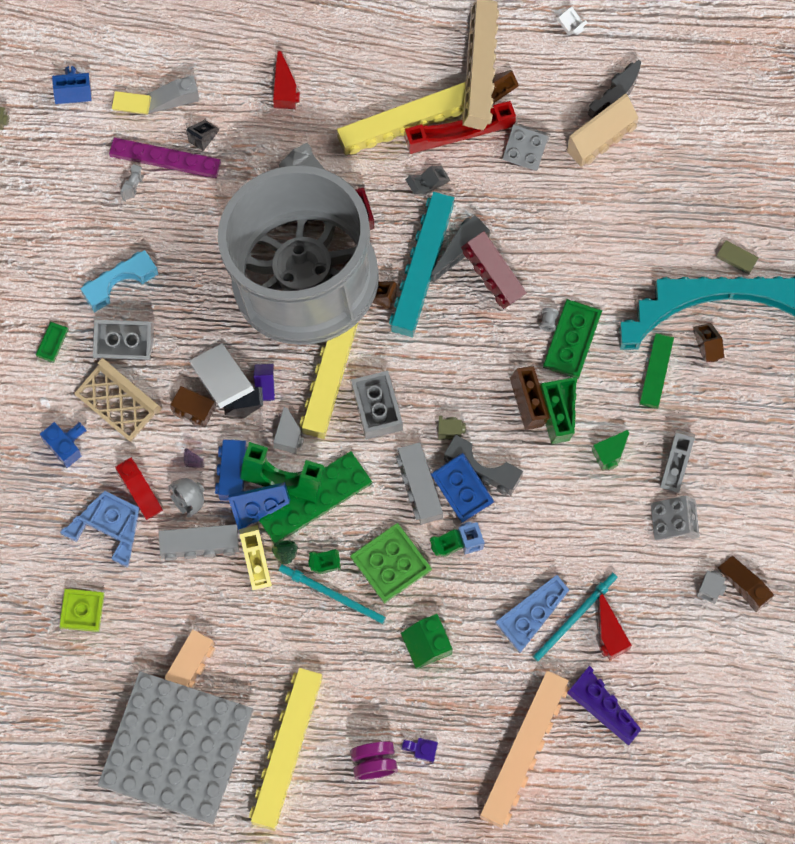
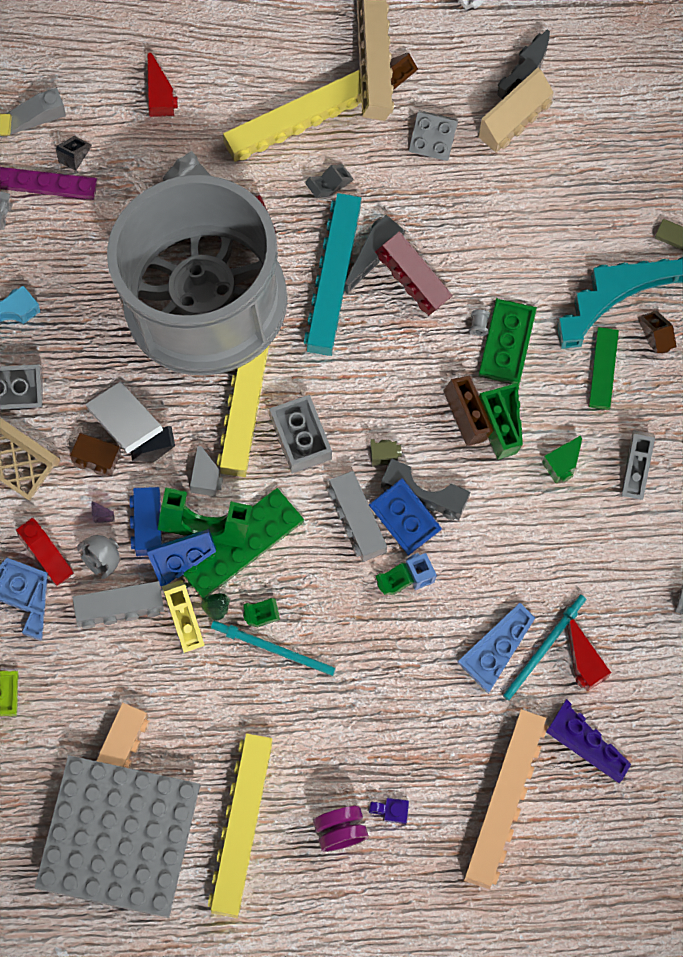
camera: 10 degrees left, 0 degrees up
(265, 378) = (172, 416): dark purple slope -> none
(385, 293) = (296, 310): reddish brown slope -> none
(391, 563) = (335, 607): bright green plate -> none
(427, 137) = (323, 134): red arch -> none
(427, 641) = (384, 690): green slope -> none
(675, 518) = (642, 528): light grey bracket -> none

